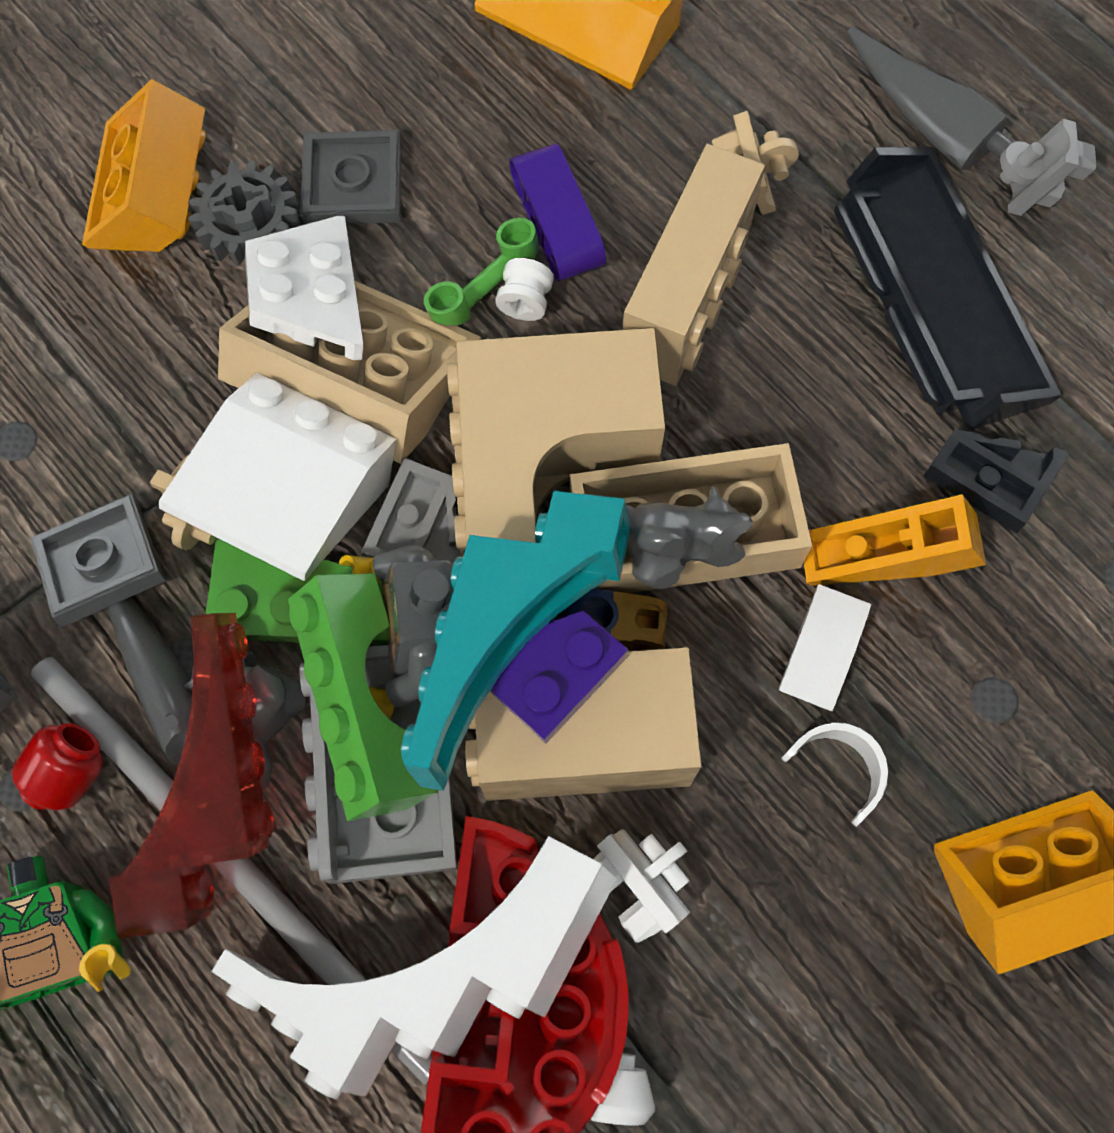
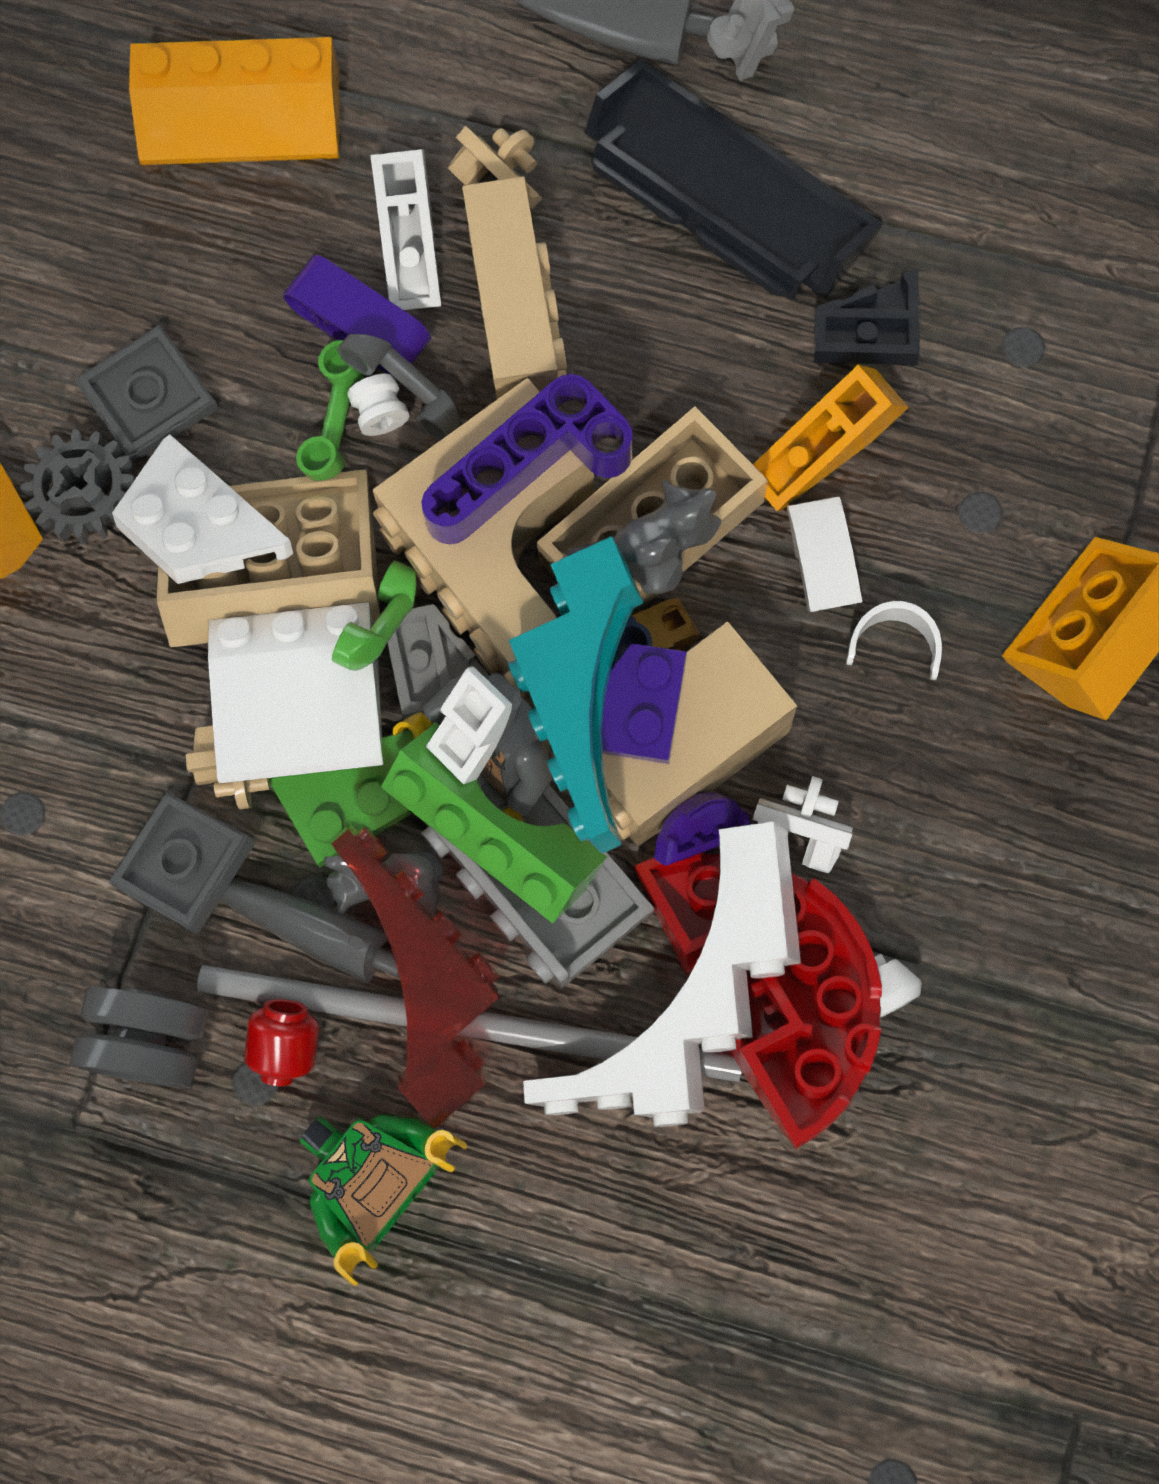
camera: 30 degrees left, 5 degrees up
(350, 467) = (361, 647): none -> bright green bar
(387, 592) = (472, 726): none -> white slope
(540, 236) = (364, 355): none -> dark grey bar
(543, 813) = (696, 826): none -> dark purple plate
(593, 396) = (523, 466): none -> dark purple beam
(646, 163) = (406, 229): none -> white slope

